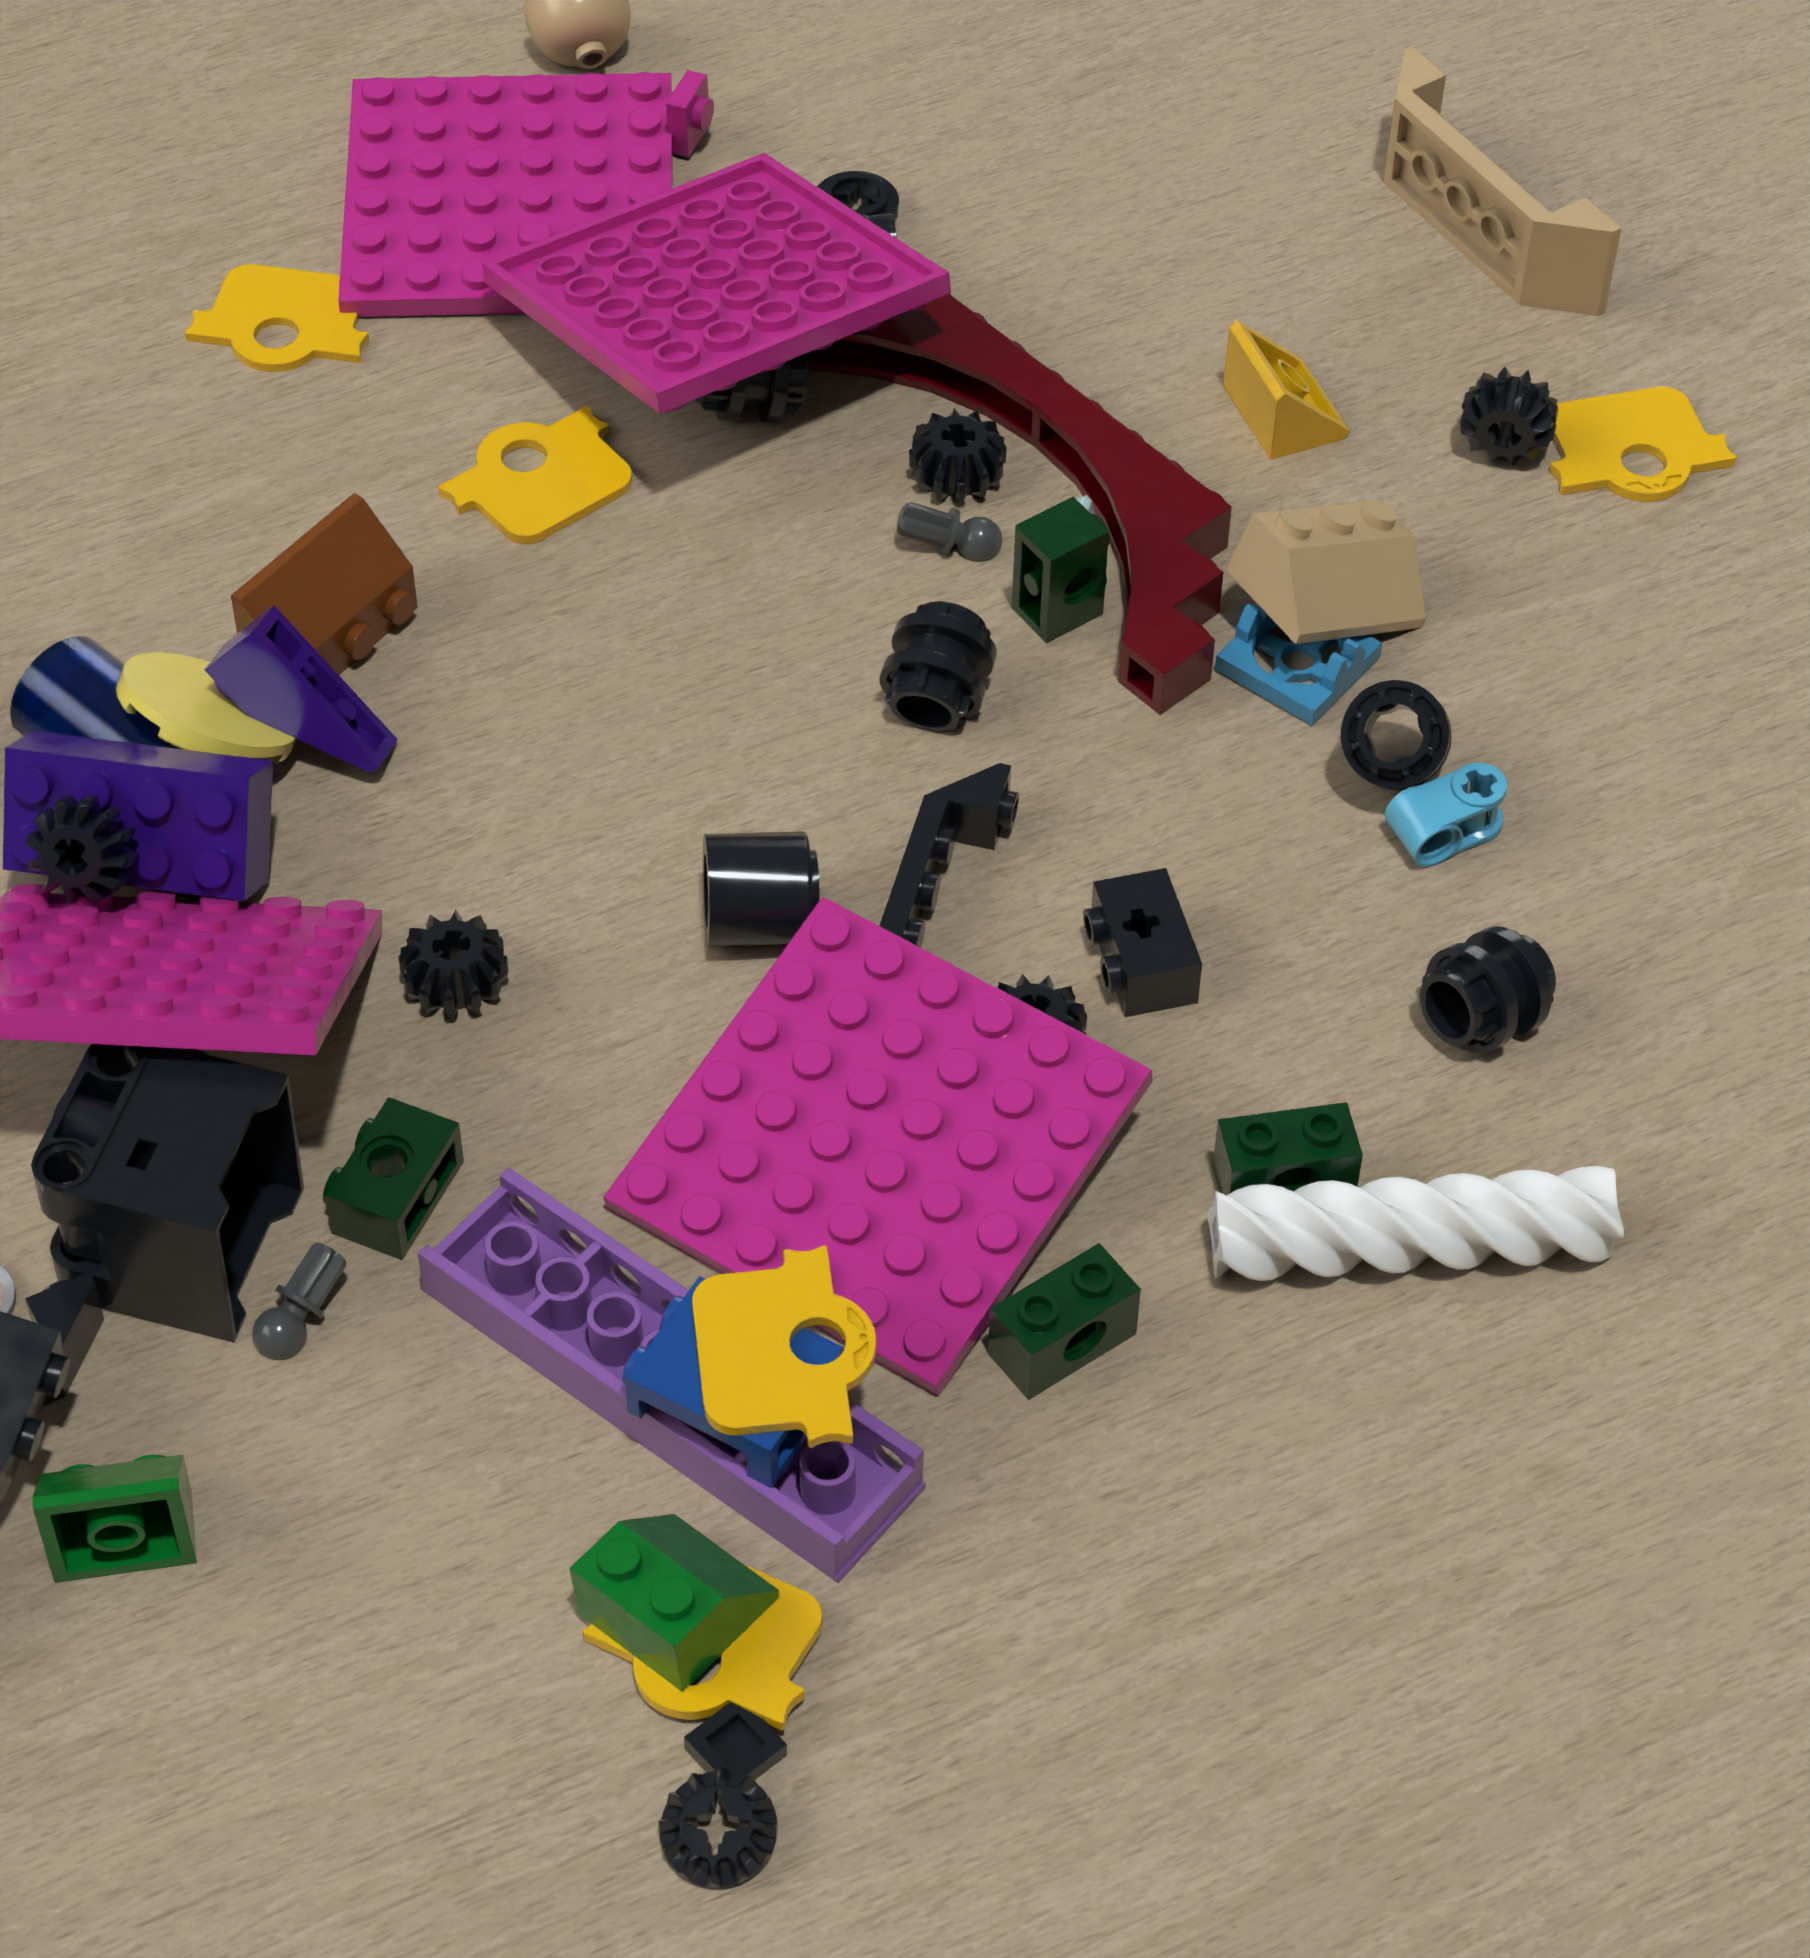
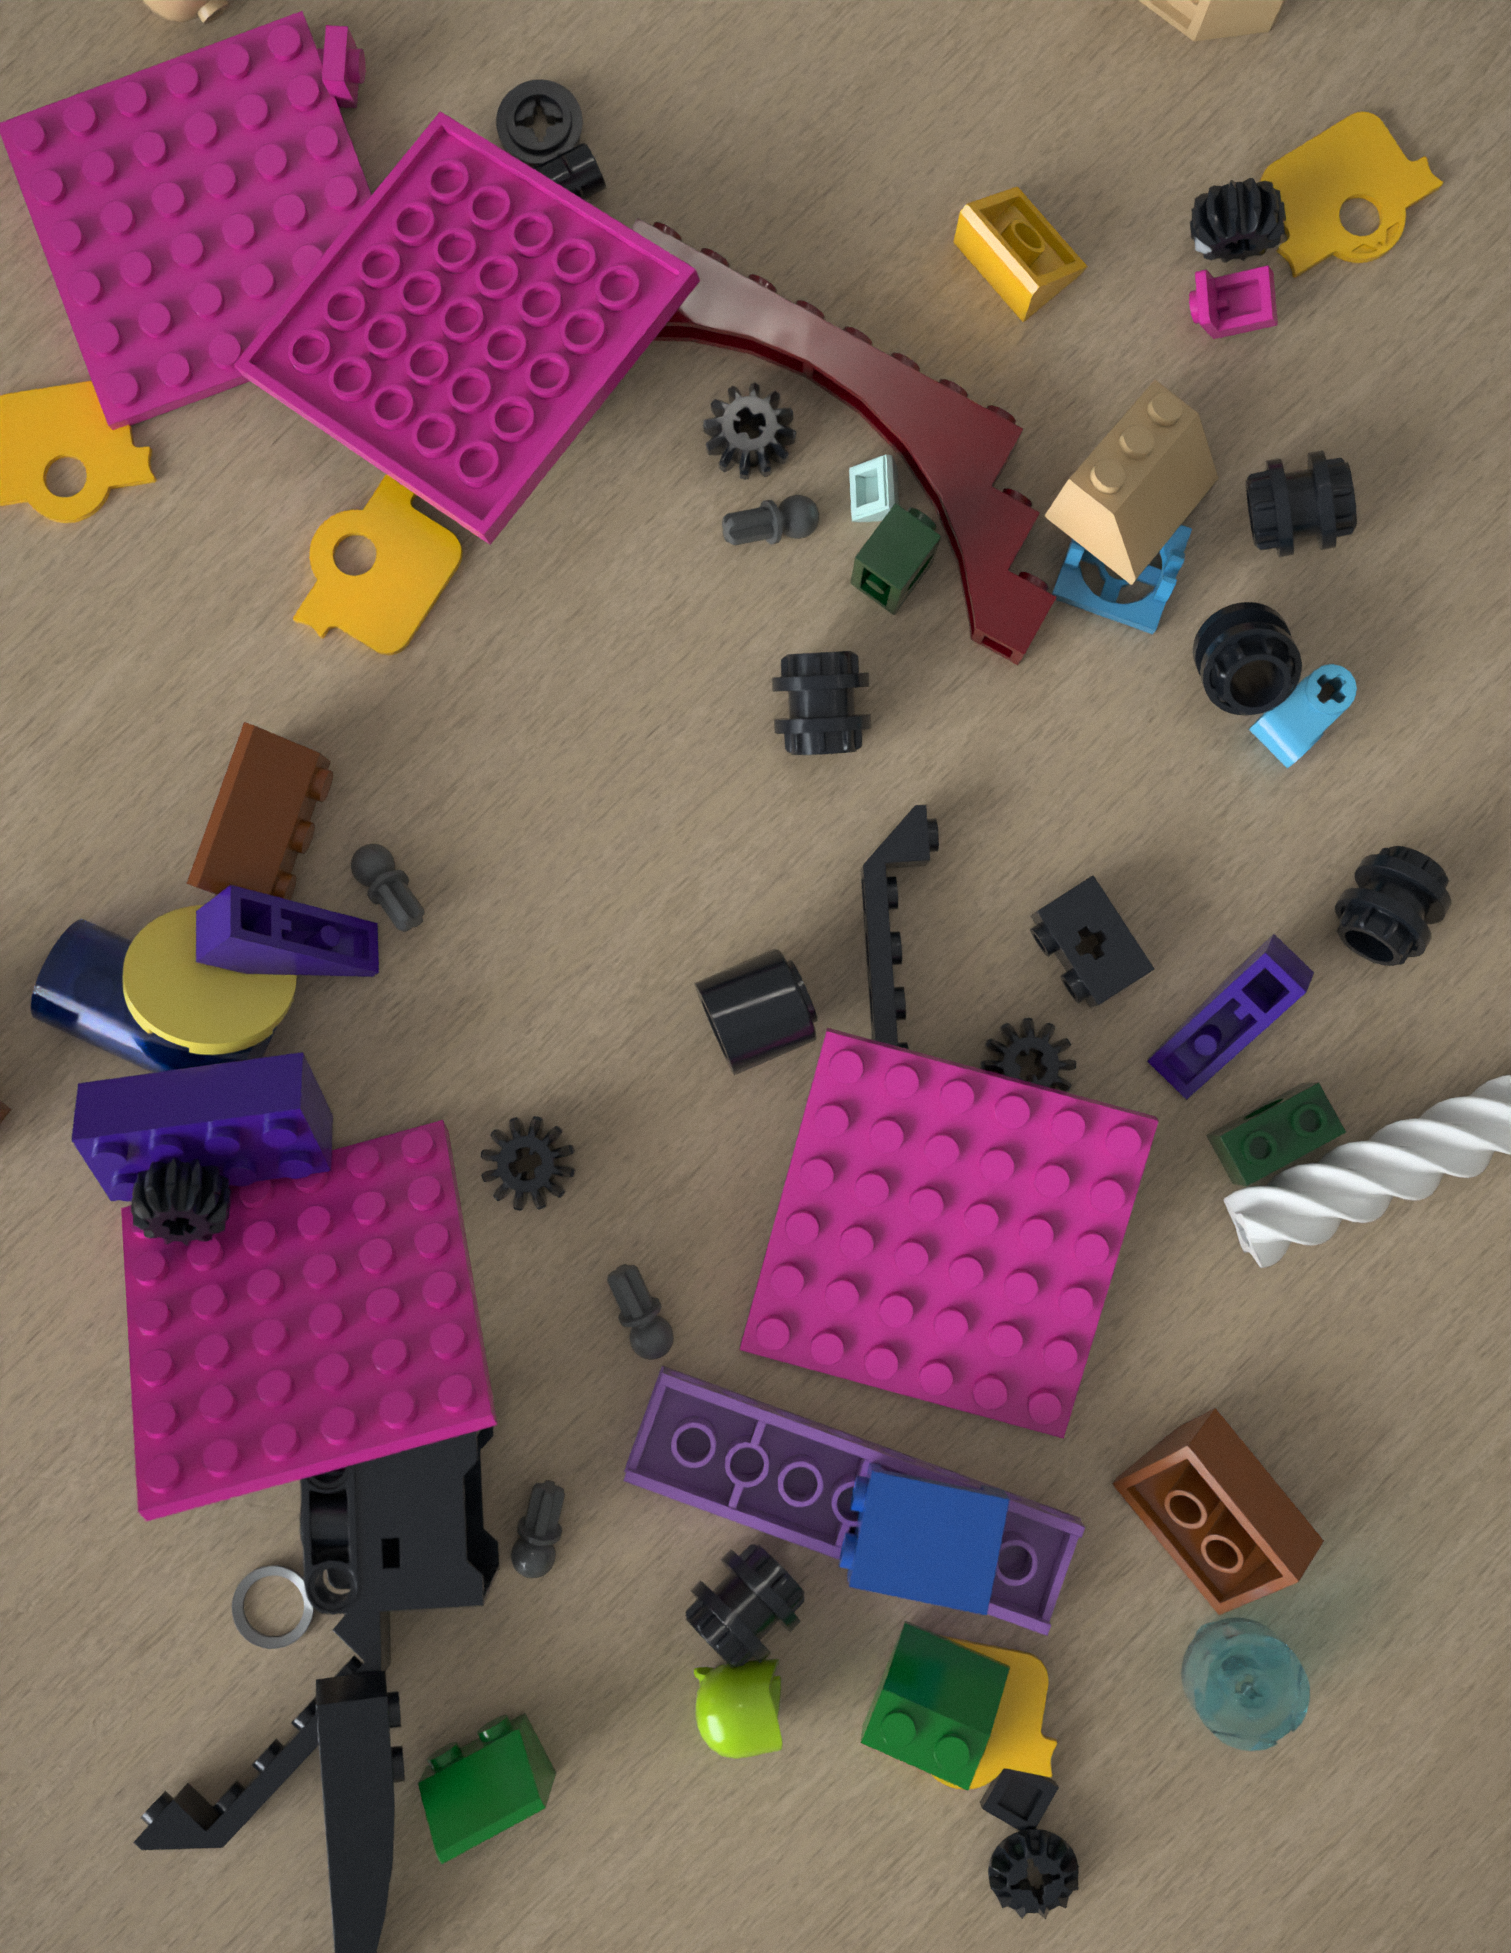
camera: 15 degrees left, 35 degrees up
(392, 1210) = (570, 1428): dark green brick -> none
(423, 704) = (375, 868): none -> dark grey axle
(439, 1522) = (739, 1708): none -> lime helmet
(484, 1427) = (745, 1606): none -> black piece
(509, 1129) = (650, 1334): none -> dark grey axle
(746, 1357) = (931, 1524): yellow piece -> none
(1054, 1677) = (1263, 1708): none -> clear light blue brick
(1063, 1321) = (1147, 1352): dark green brick -> none
(1088, 1507) = (1219, 1513): none -> dark orange slope
(1277, 1045) = (1232, 1016): none -> dark purple slope
(1485, 485) = (1234, 302): none -> dark pink bracket
(1499, 640) = (1301, 503): none -> black piece

